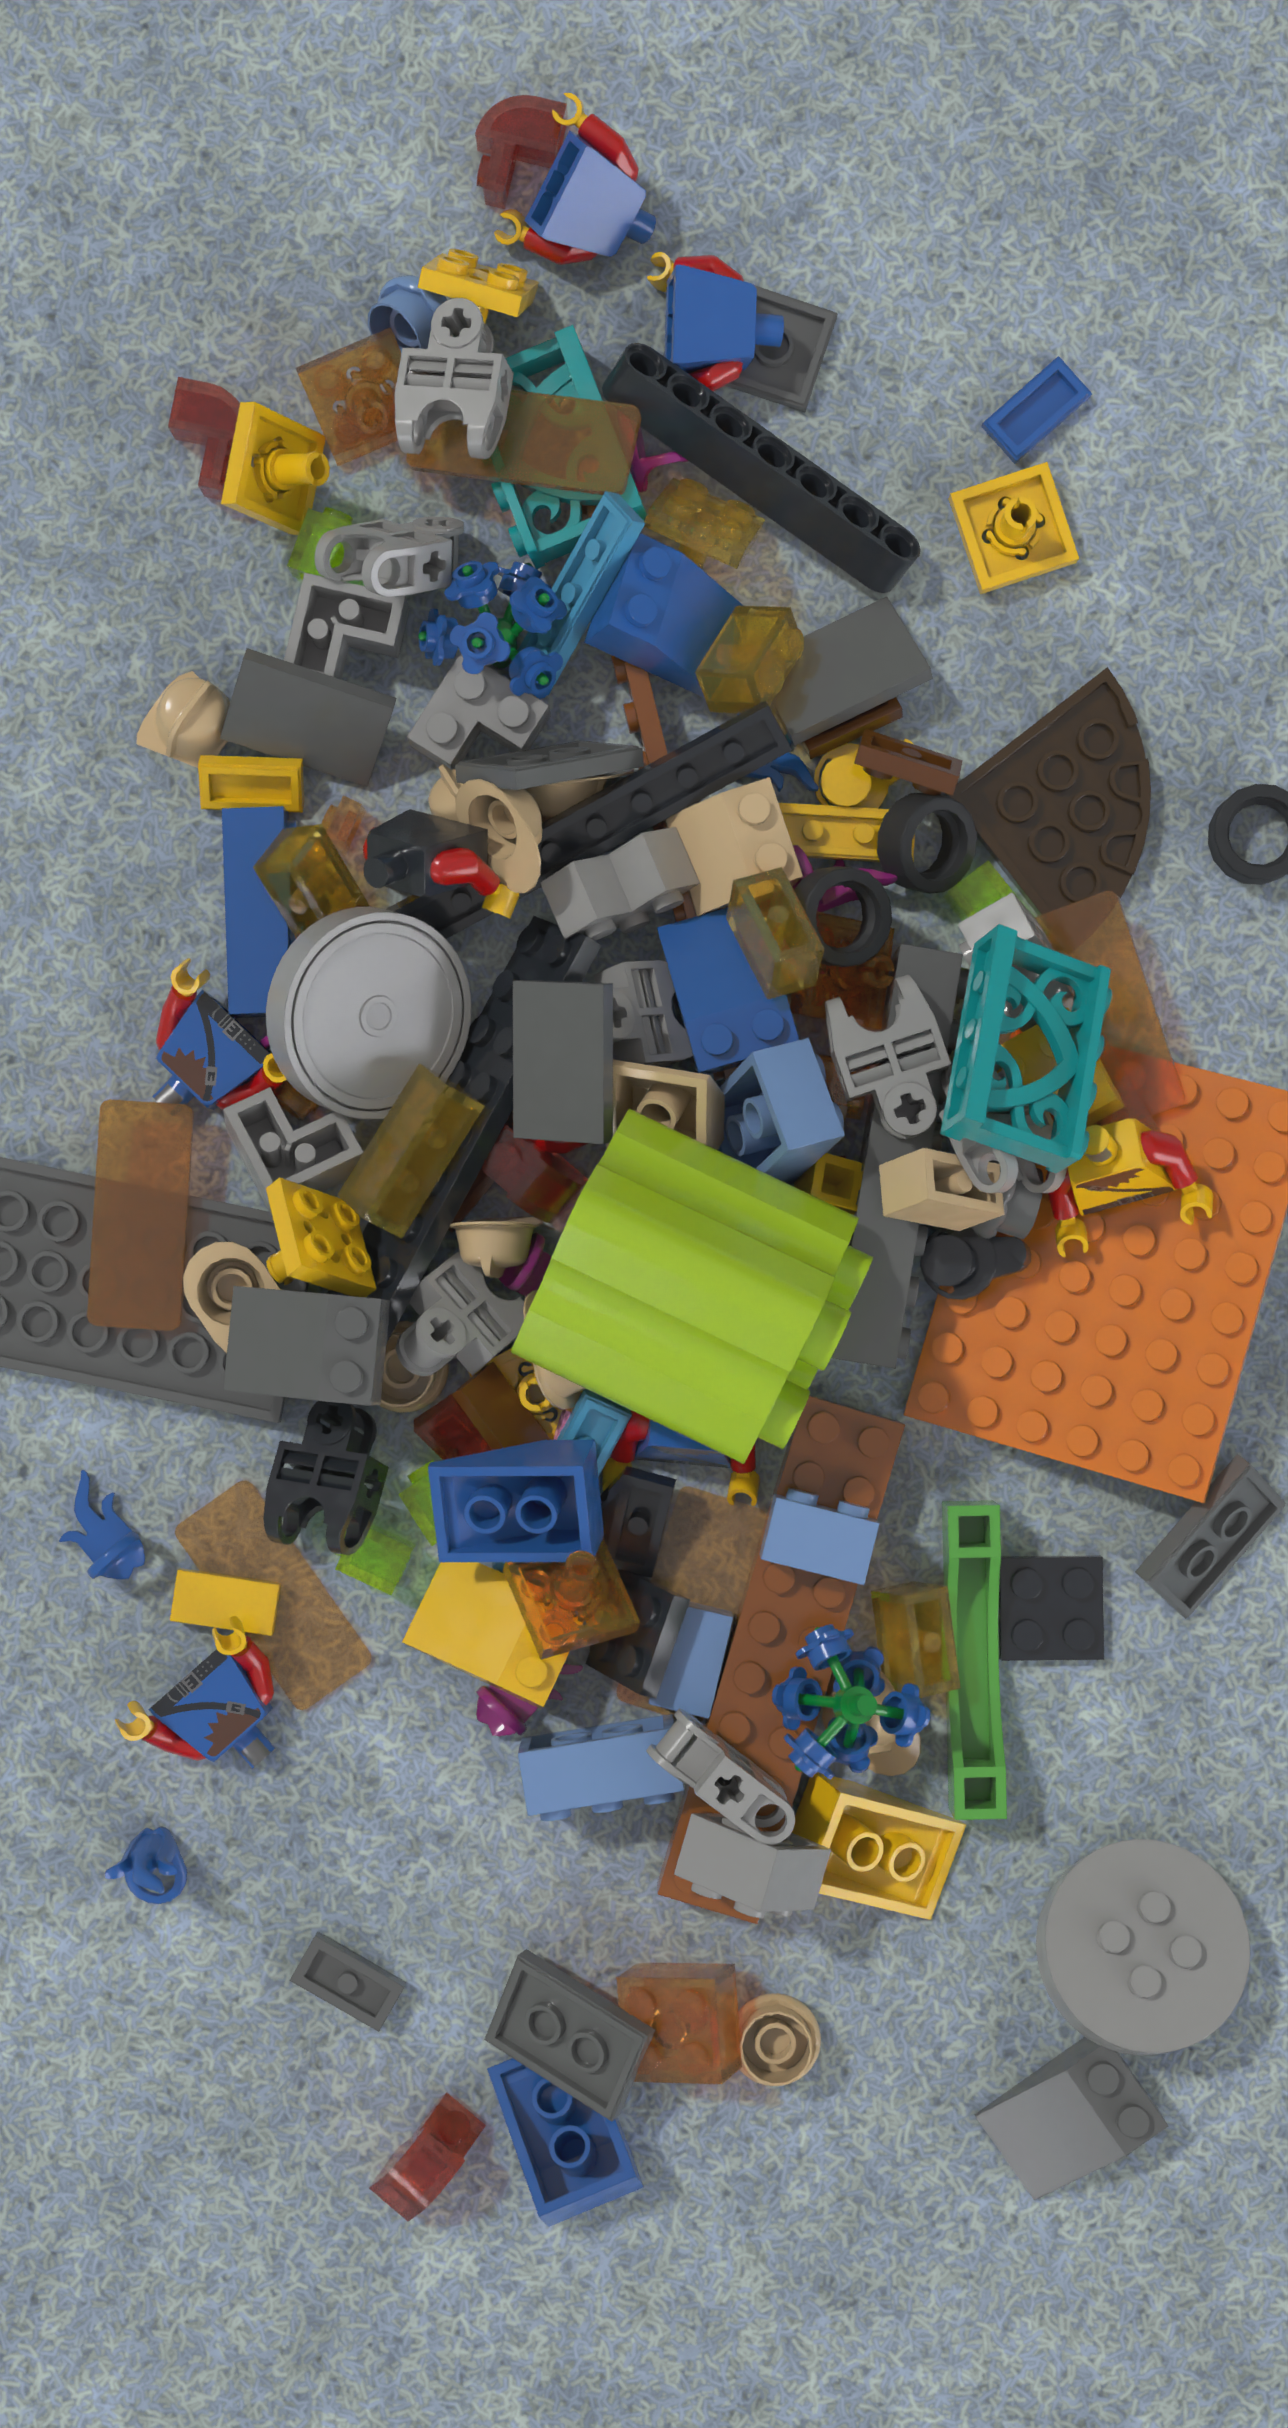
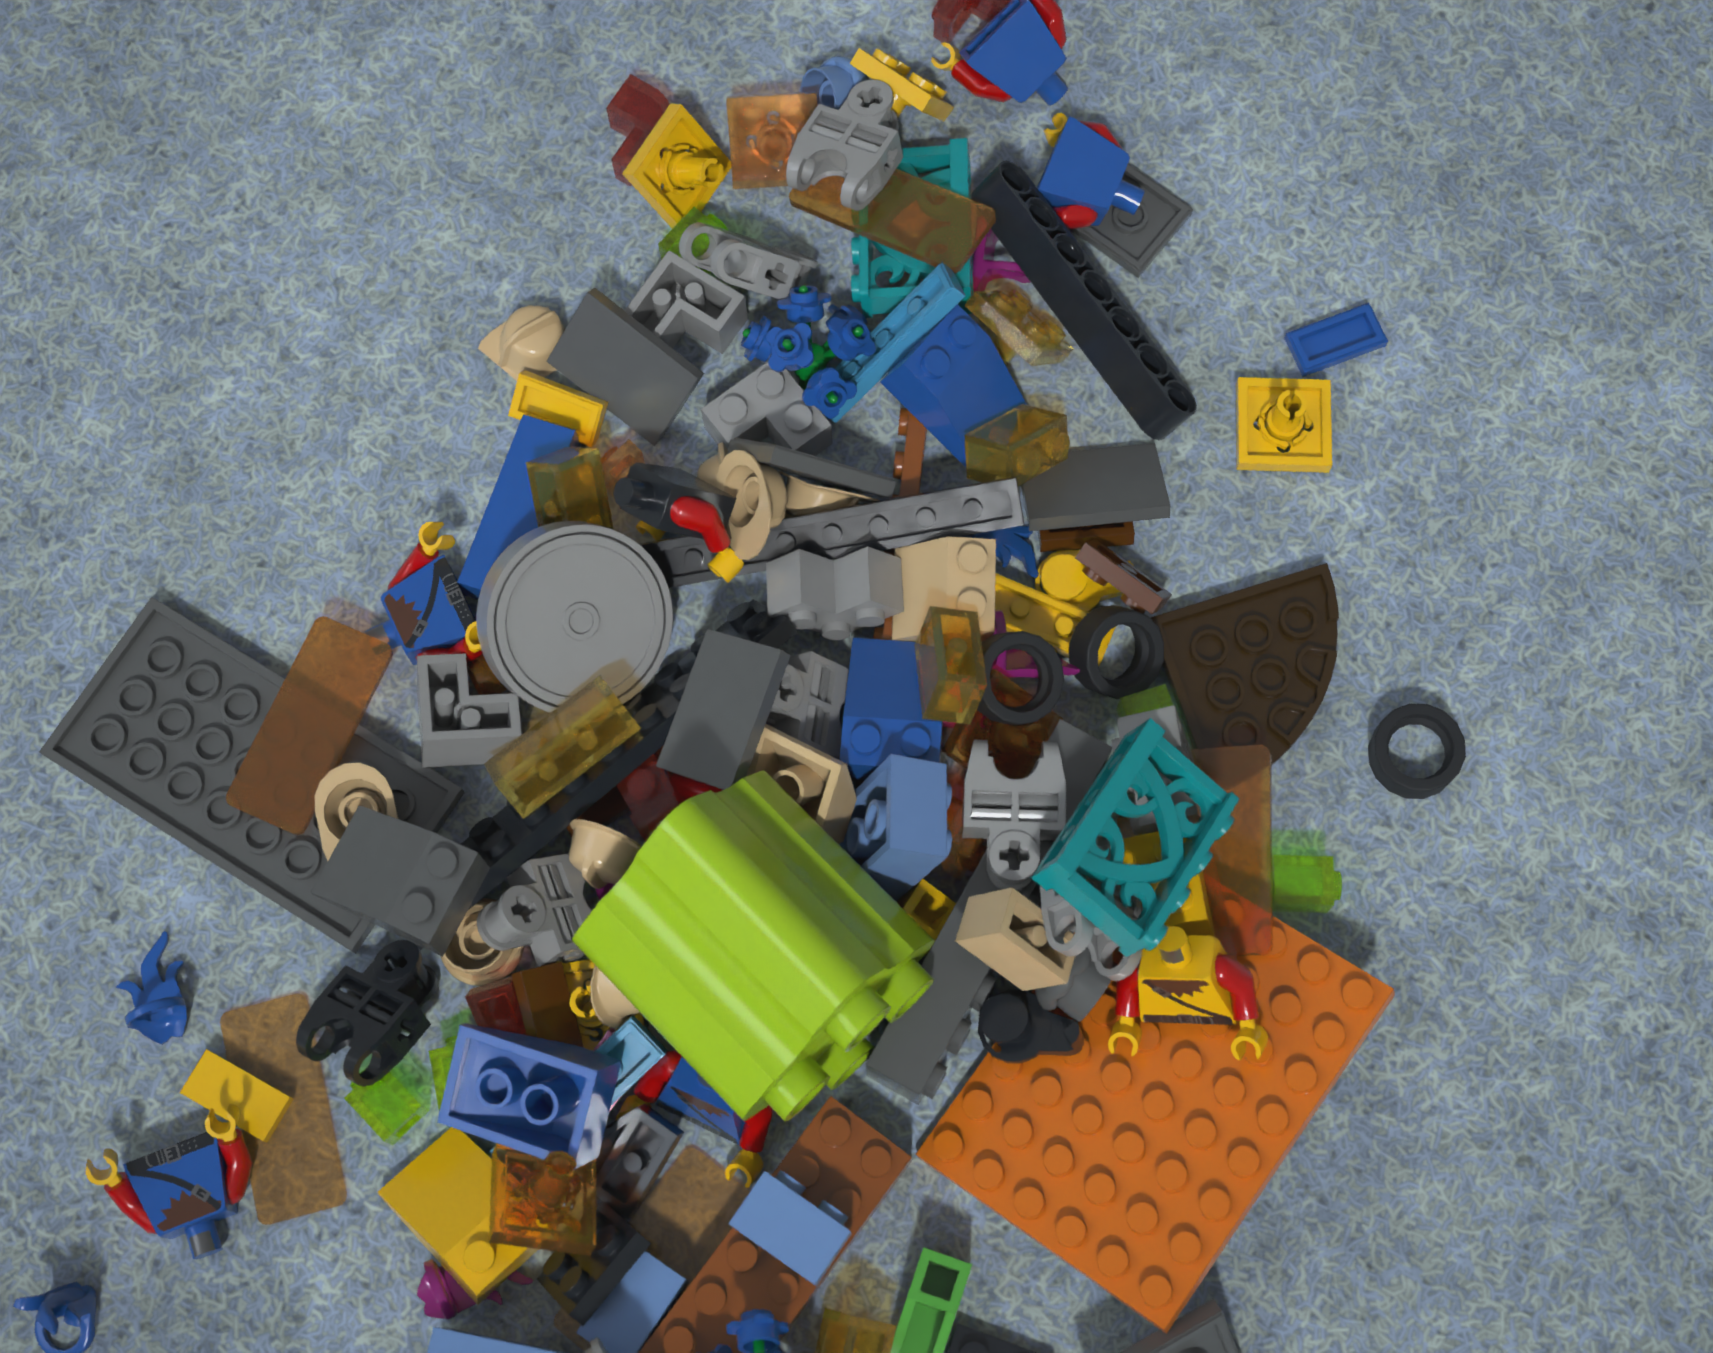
camera: 20 degrees right, 15 degrees down
(318, 1240) = (448, 790): yellow plate -> none
(1193, 1012) = (1304, 883): none -> clear neon green brick

